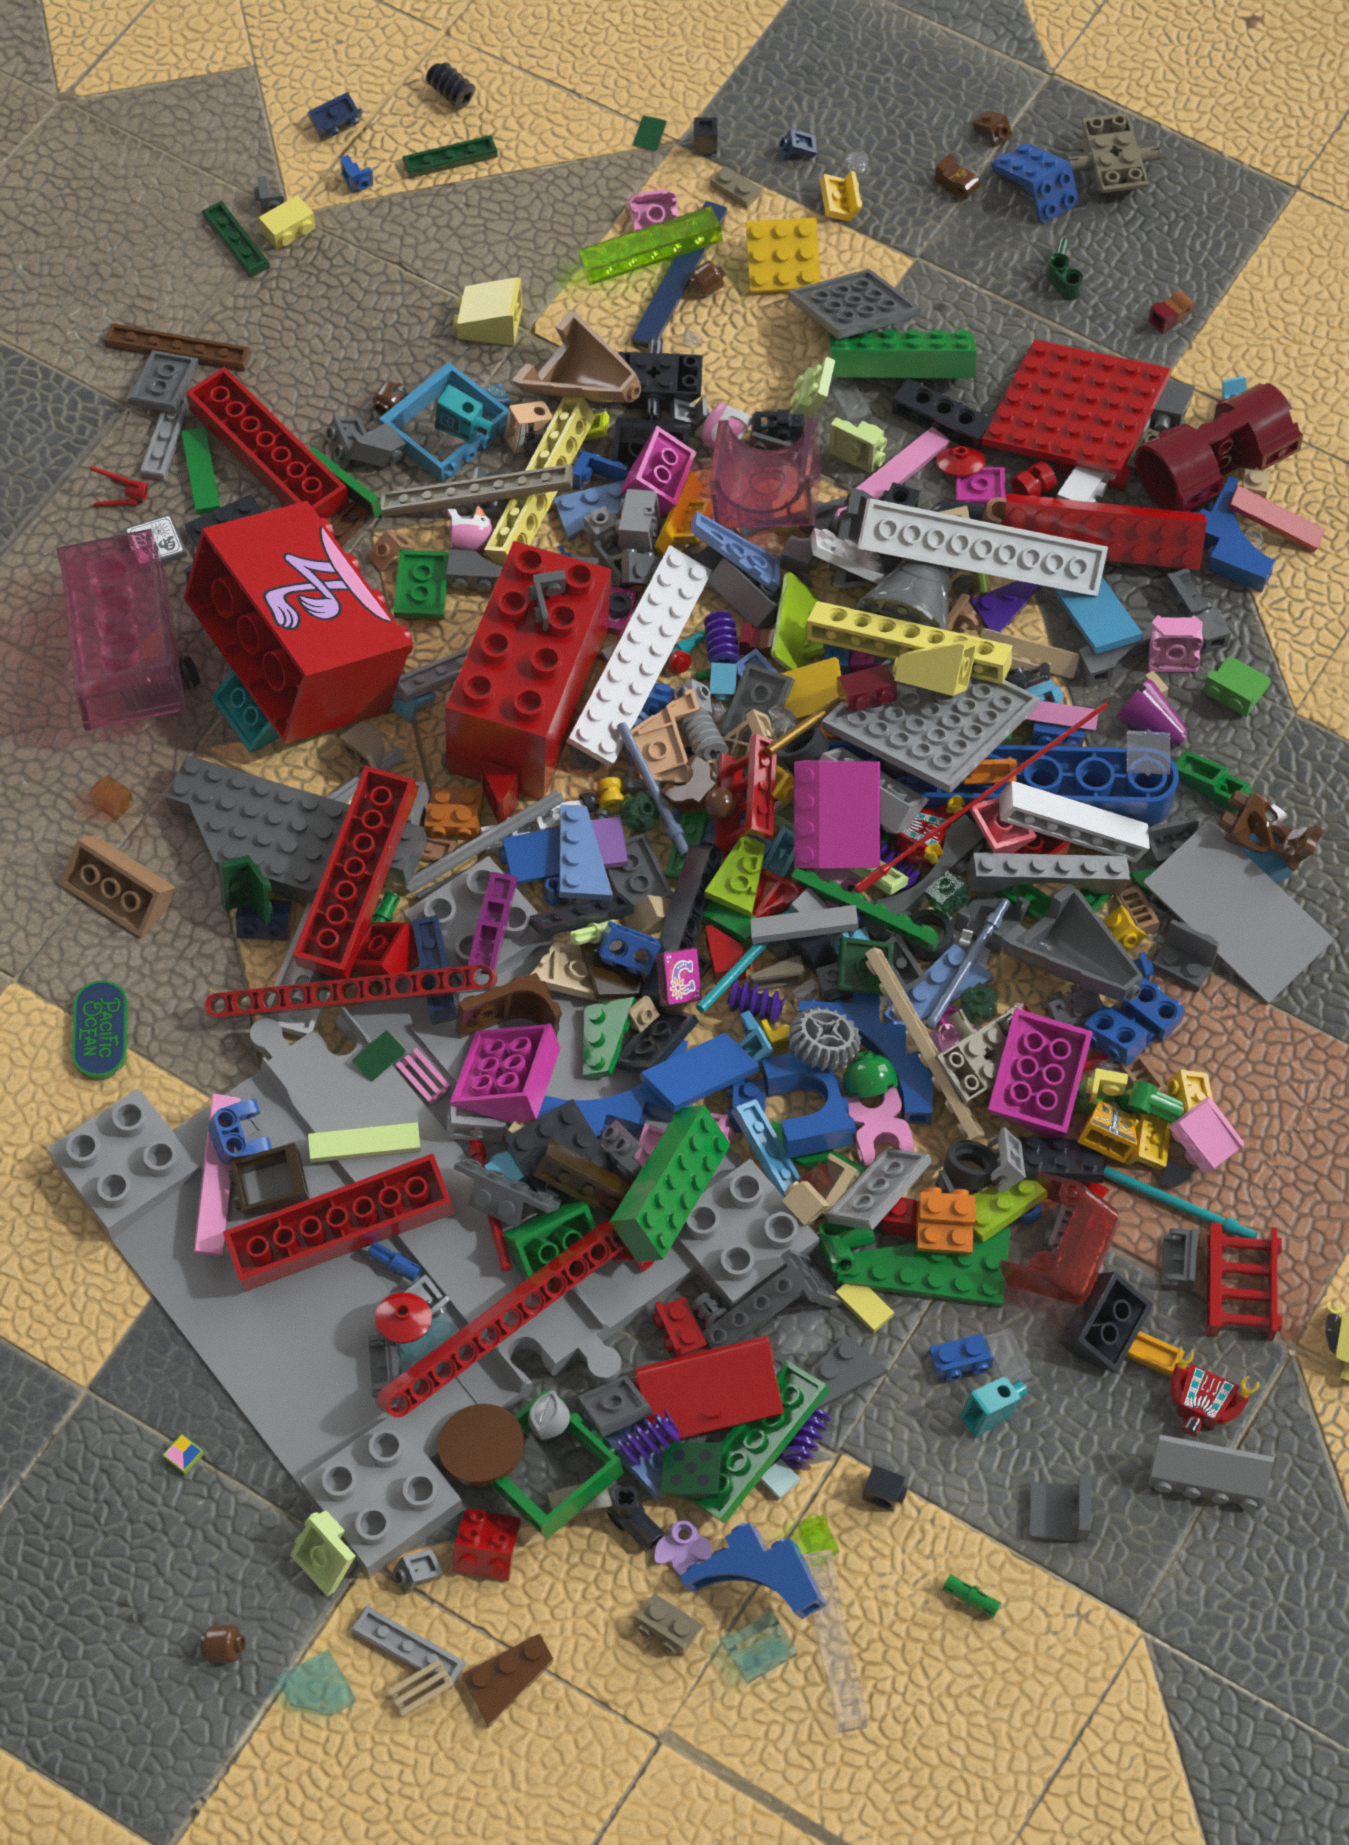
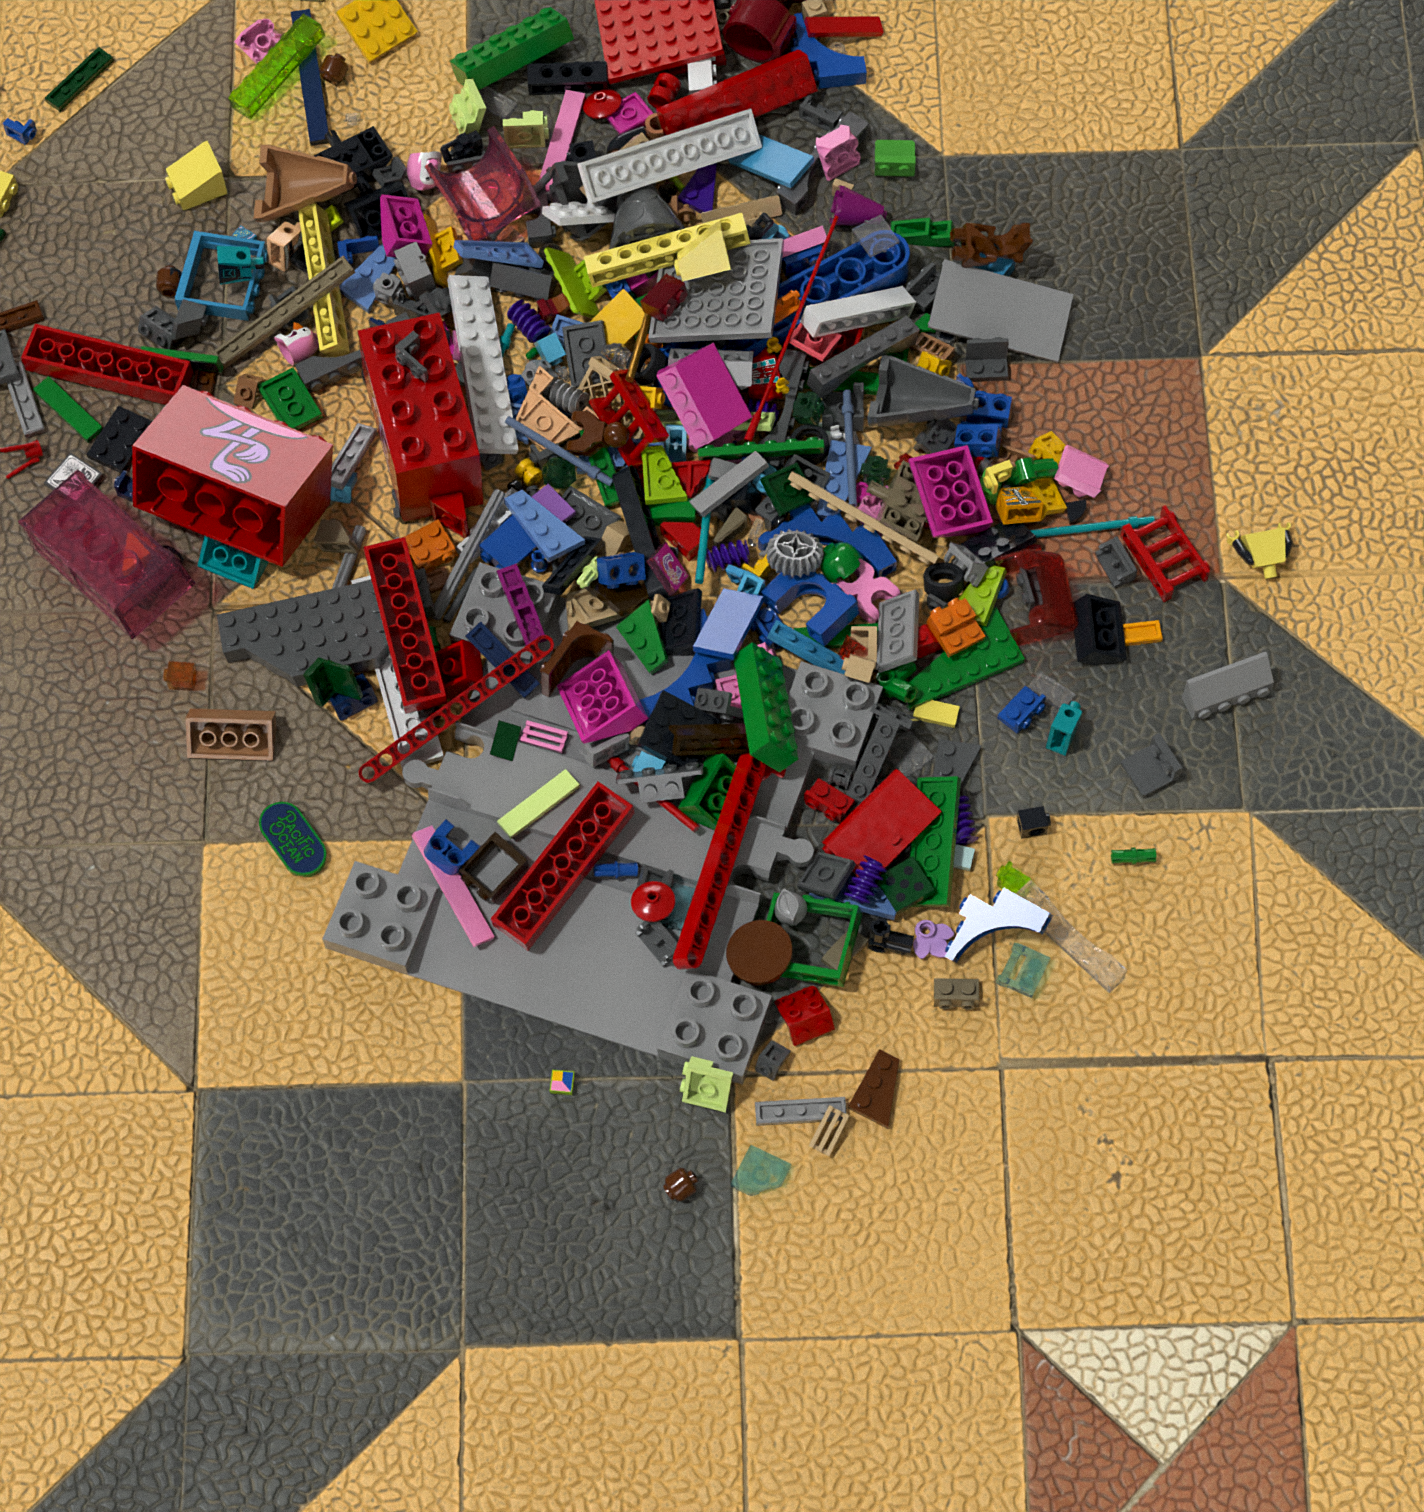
camera: 30 degrees left, 5 degrees up
(450, 84) = (42, 25): black piece -> none
(679, 662) = (509, 354): red plate -> none
(854, 303) = (453, 30): dark grey plate -> none
(1205, 1397) = (1193, 640): red torso -> none

